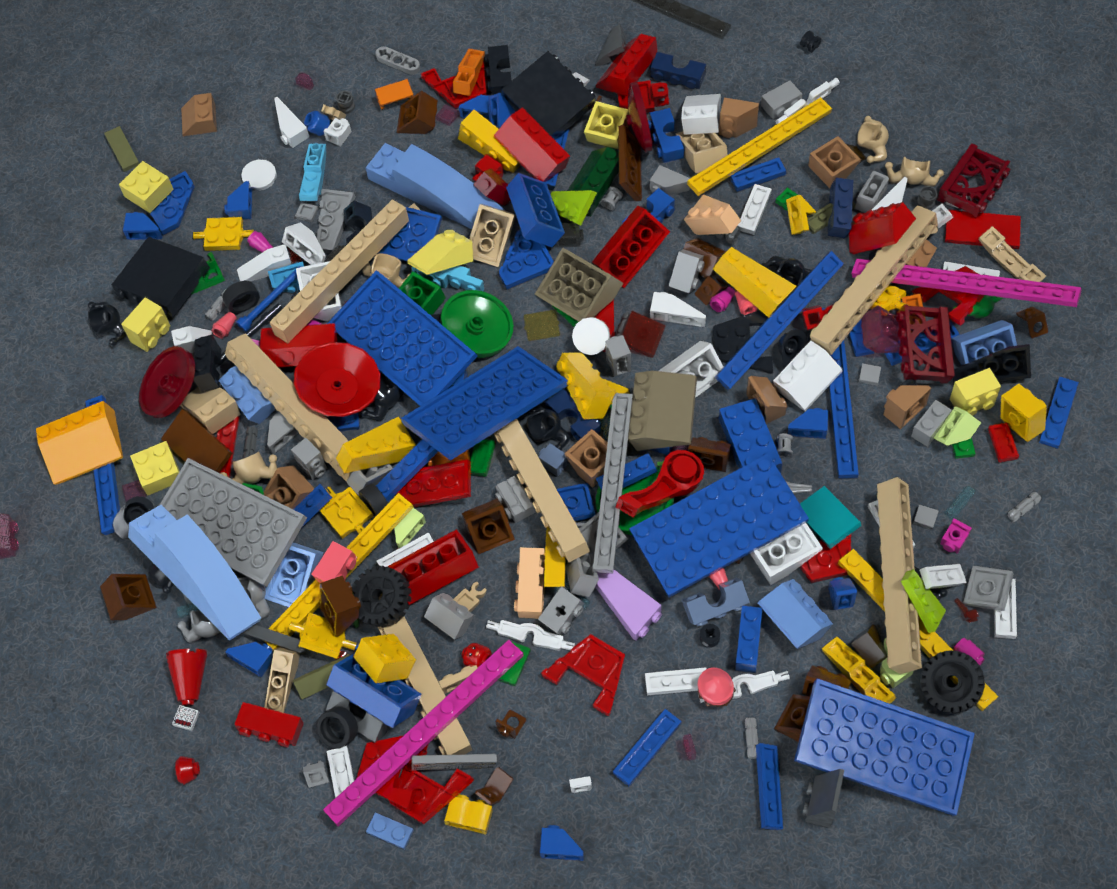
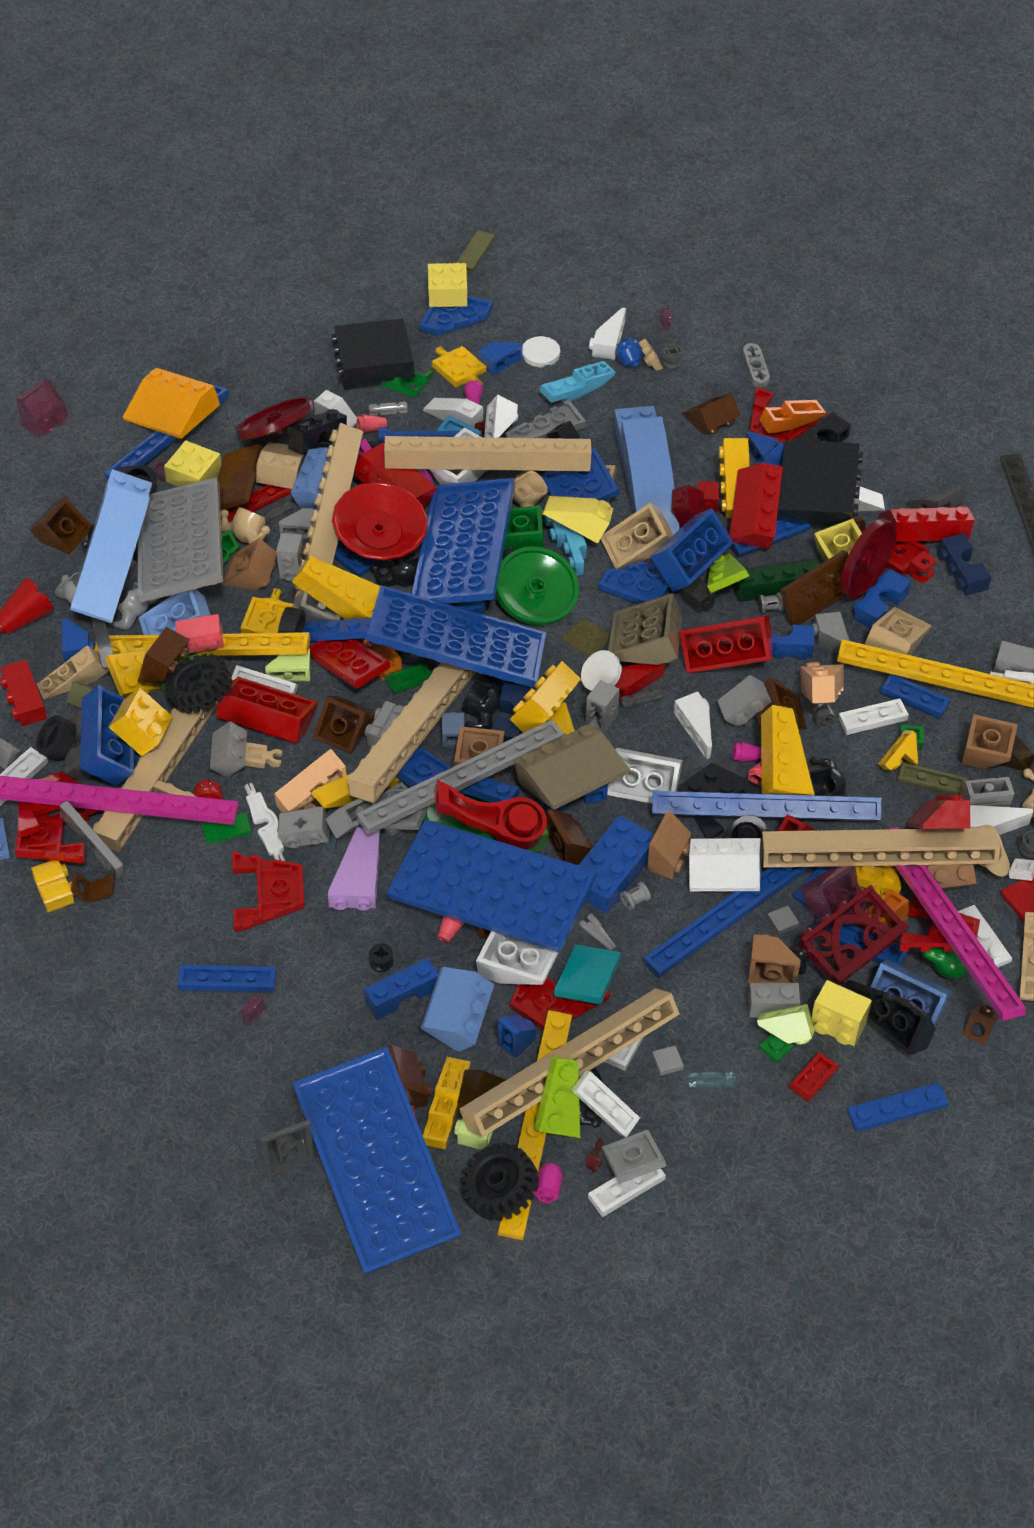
camera: 45 degrees right, 10 degrees down
(105, 319) = (300, 347): black piece -> none
(139, 227) = (410, 308): blue slope -> none
(146, 324) = (317, 371): light yellow brick -> none
(199, 115) = (559, 276): medium nougat slope -> none
(237, 290) = (409, 405): black tyre -> none
(306, 212) = (536, 405): light grey tile -> none
(313, 502) = (242, 588): blue plate -> none
(338, 131) = (637, 372): white brick -> none
(393, 92) = (716, 381): orange hinge -> none
(447, 115) = (735, 431): clear pink tile -> none
(505, 729) = (157, 862): reddish brown bracket -> none
(559, 845) = (76, 967): blue slope -> none
(580, 784) = (148, 949): white tile -> none
(643, 334) = (647, 714): clear red plate -> none
(672, 681) = (312, 961): white plate -> none
(701, 114) = (932, 608): white slope -> none
(710, 288) = (748, 734): reddish brown bracket -> none
(715, 687) = (327, 990): coral hair -> none
(732, 598) = (399, 932): sand blue arch -> none
(737, 117) = (955, 636): medium nougat slope -> none
(751, 737) = (305, 1056): light grey axle -> none
(757, 682) = (344, 1010): white piece -> none
(769, 787) = (263, 1099): blue tile -> none
(810, 424) = (677, 901): blue slope -> none
(841, 217) = (949, 771): dark blue arch -> none
(961, 531) = (666, 1096): dark pink brick -> none
(1023, 412) = (858, 1067): yellow brick -> none
(1024, 506) = (758, 1138): light grey axle -> none

